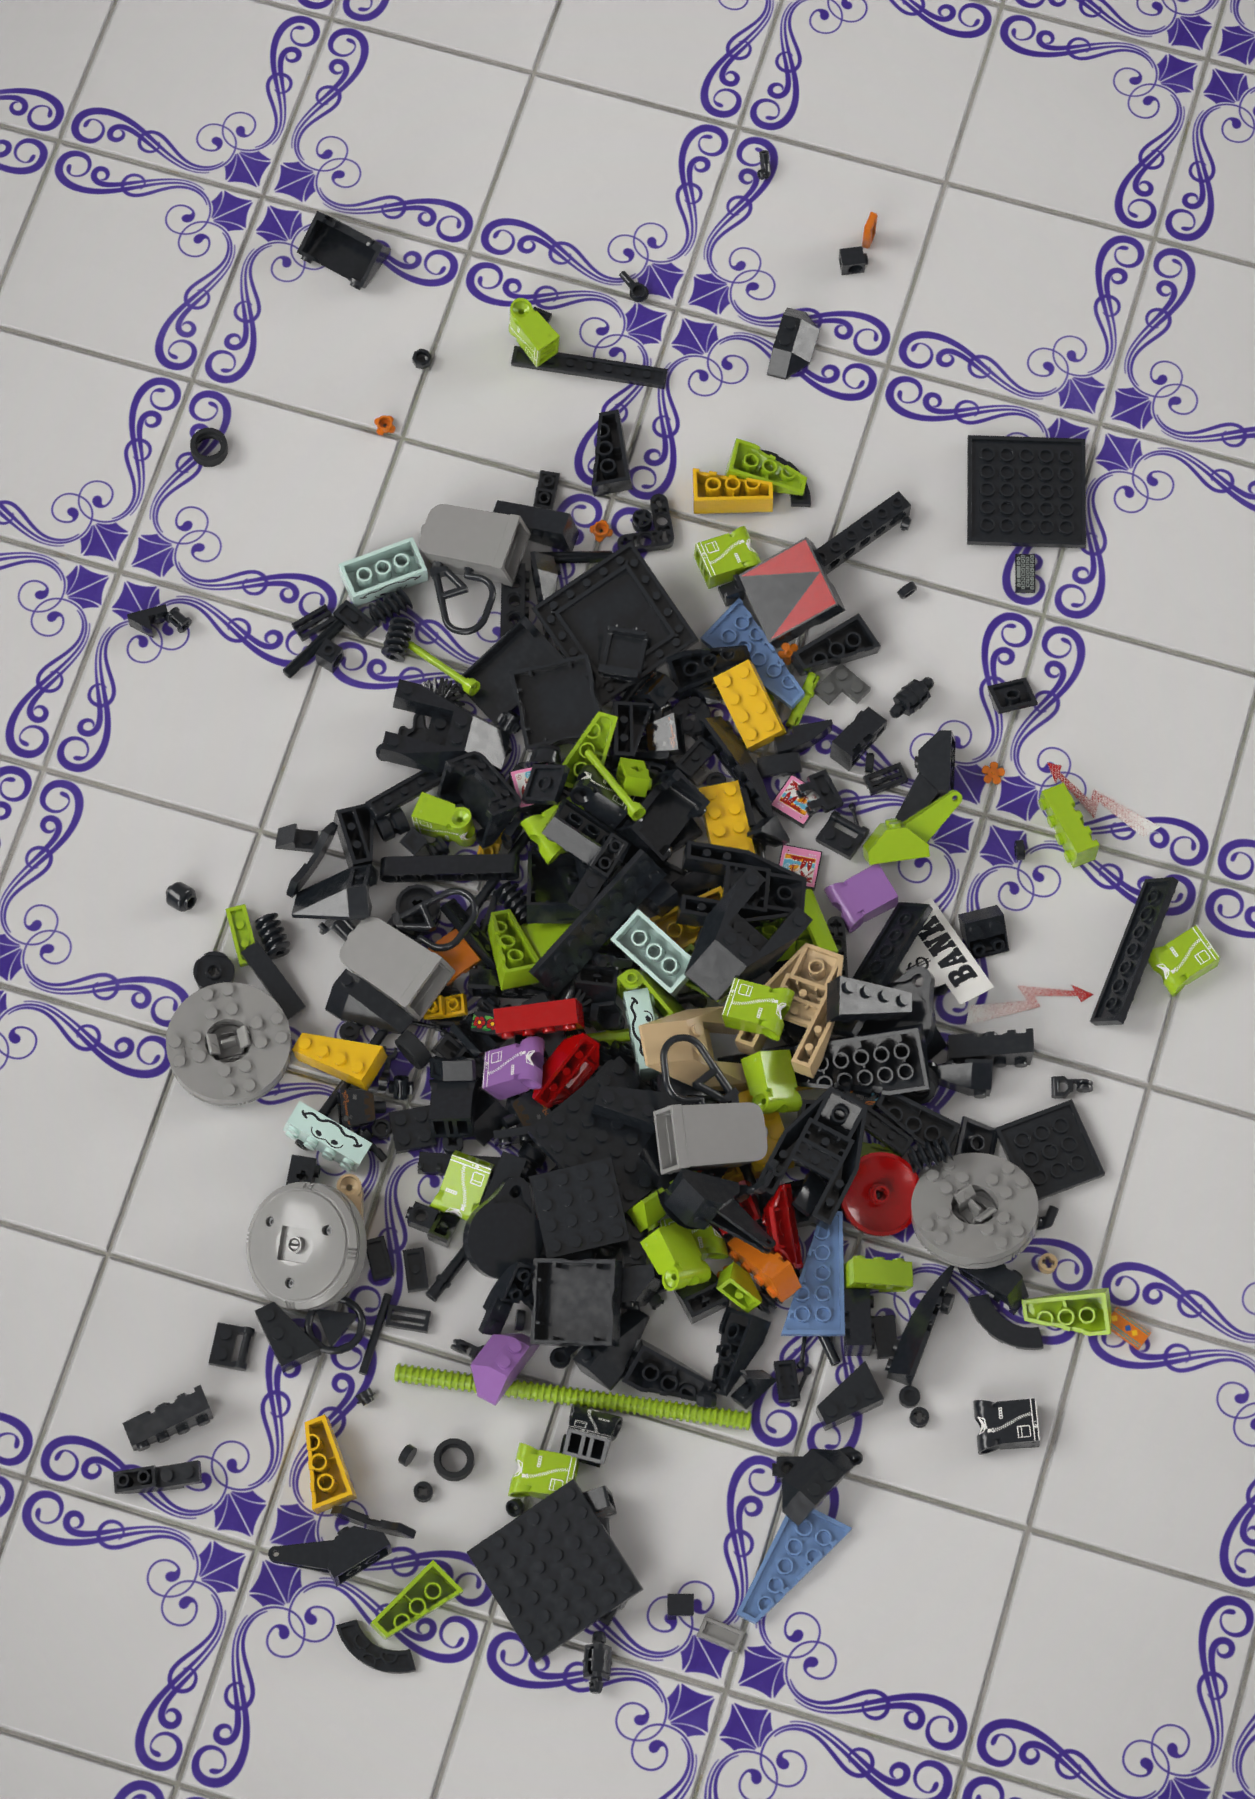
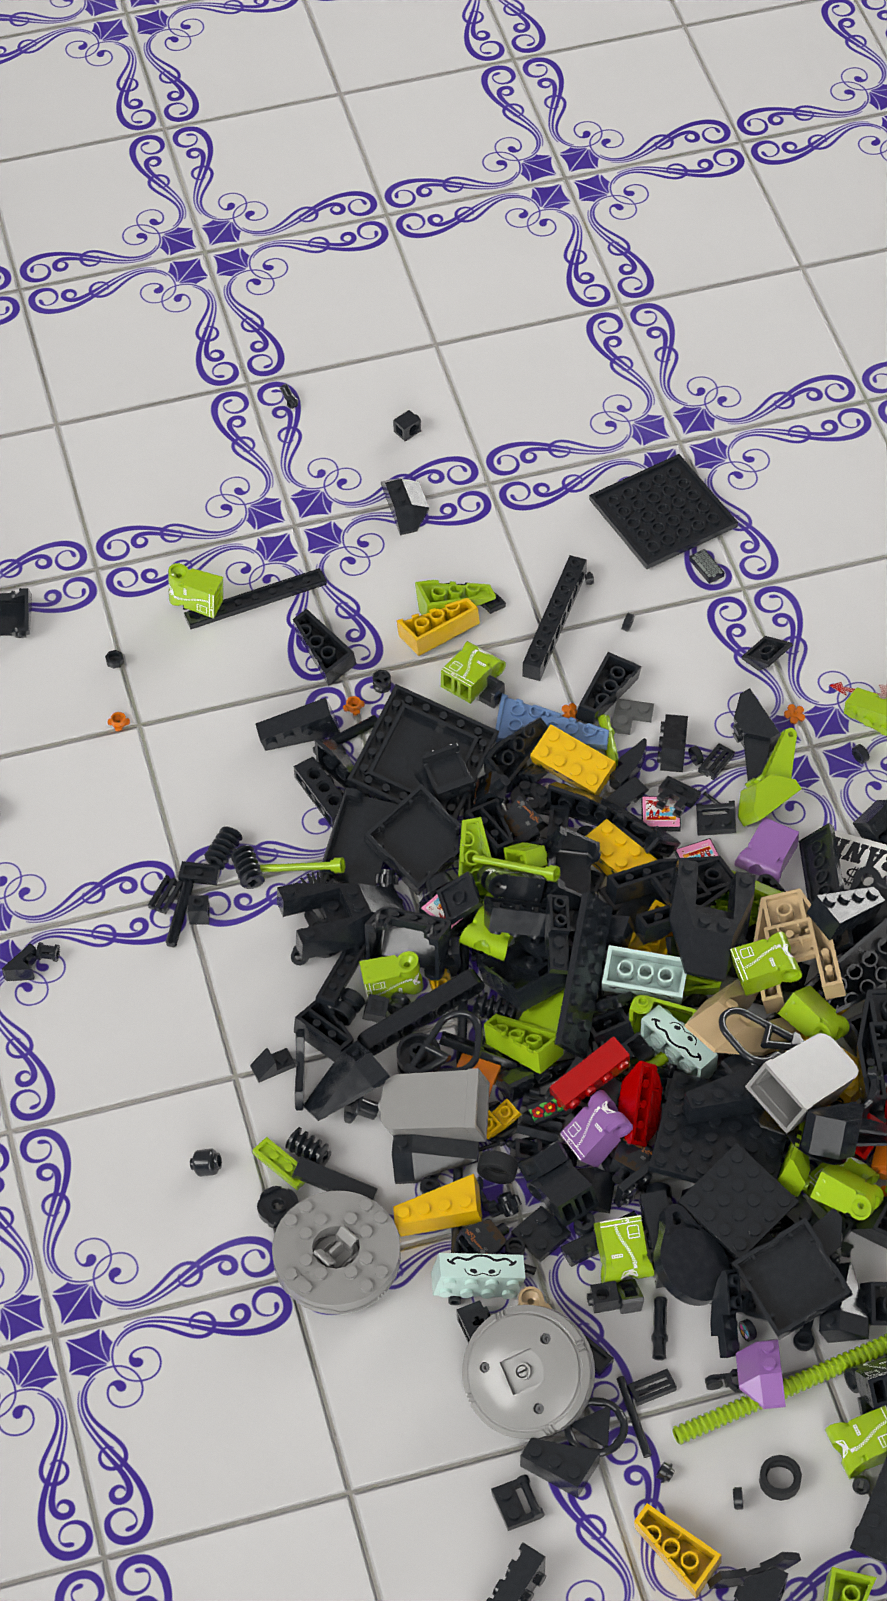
camera: 30 degrees left, 15 degrees down
(383, 572) = (198, 823): light aqua brick -> none
(415, 1269) = (629, 1342): black plate -> none
(423, 1485) = (778, 1526): black bush -> none
(475, 545) = (263, 762): light grey piece -> none
(546, 490) = (286, 697): black slope -> none
(638, 291) = (254, 527): black plate -> none
(655, 535) = (394, 667): black beam -> none
(791, 592) = (544, 664): tile -> none
(869, 230) = (406, 395): orange tile -> none
(911, 697) = (692, 692): black piece -> none

